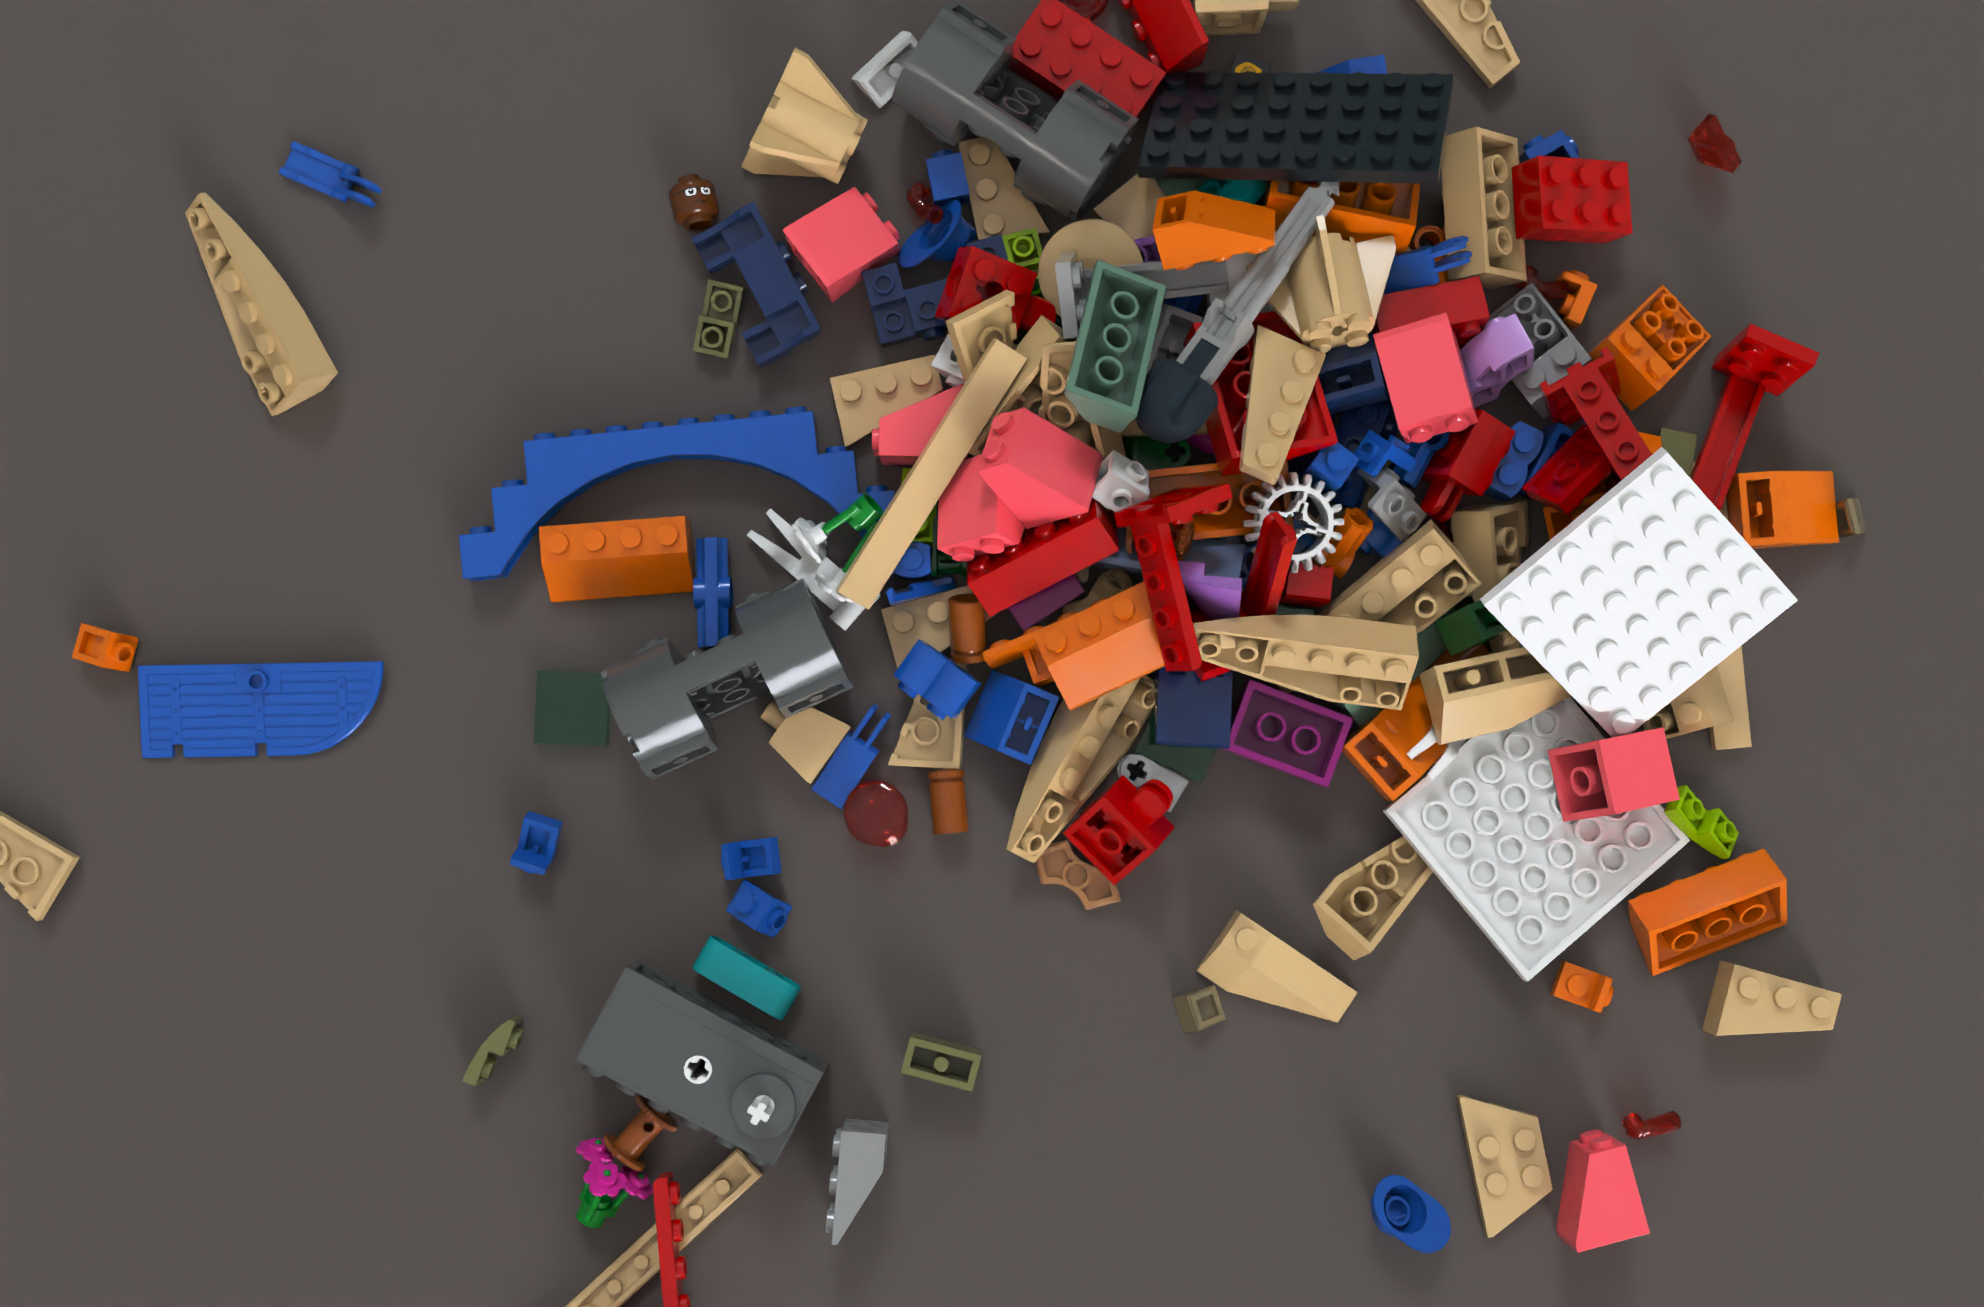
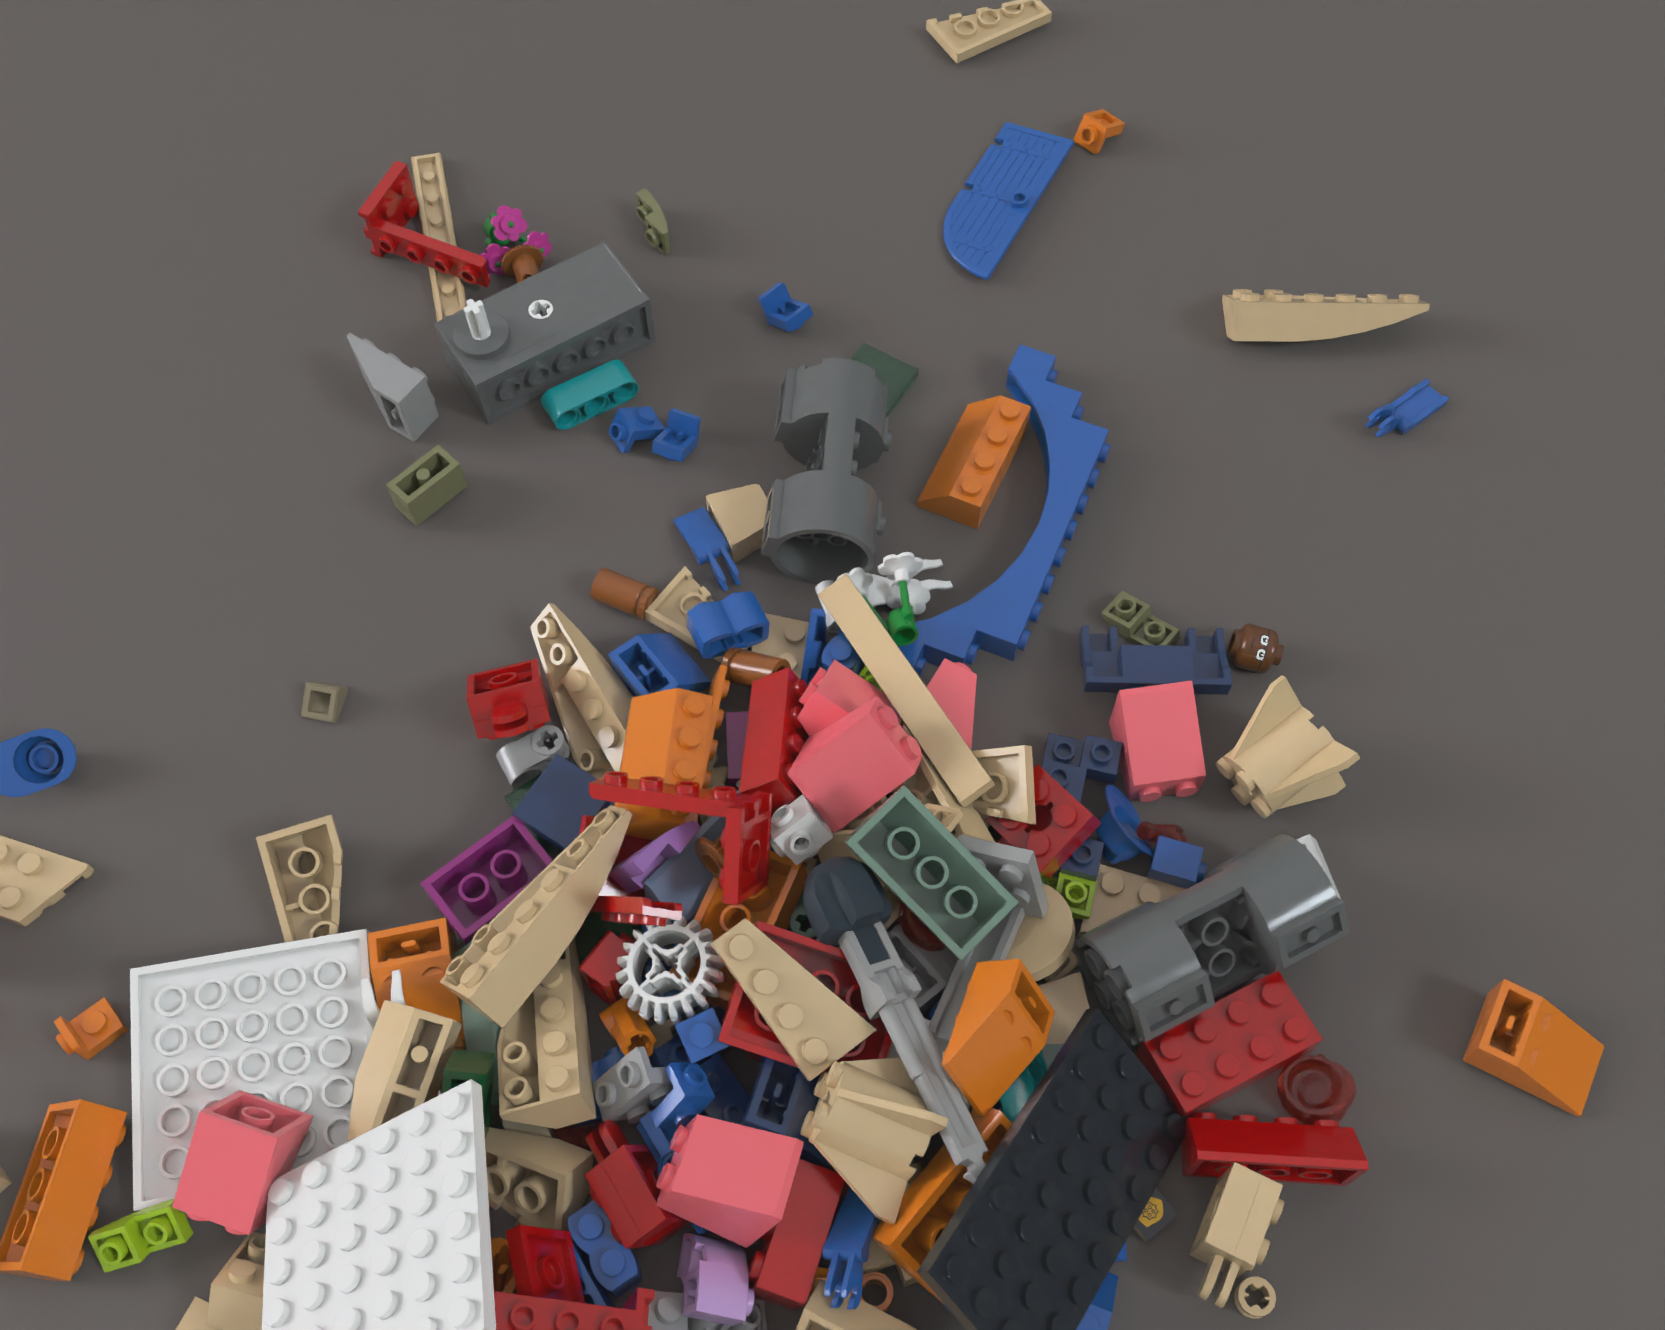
camera: 120 degrees right, 25 degrees down
(712, 591) = (910, 511): blue piece -> none
(876, 813) = (650, 539): clear red piece -> none
(879, 391) = (1002, 707): tan wing -> none
(1063, 867) = (513, 649): medium nougat tile -> none
(1264, 968) = (317, 769): tan wedge -> none

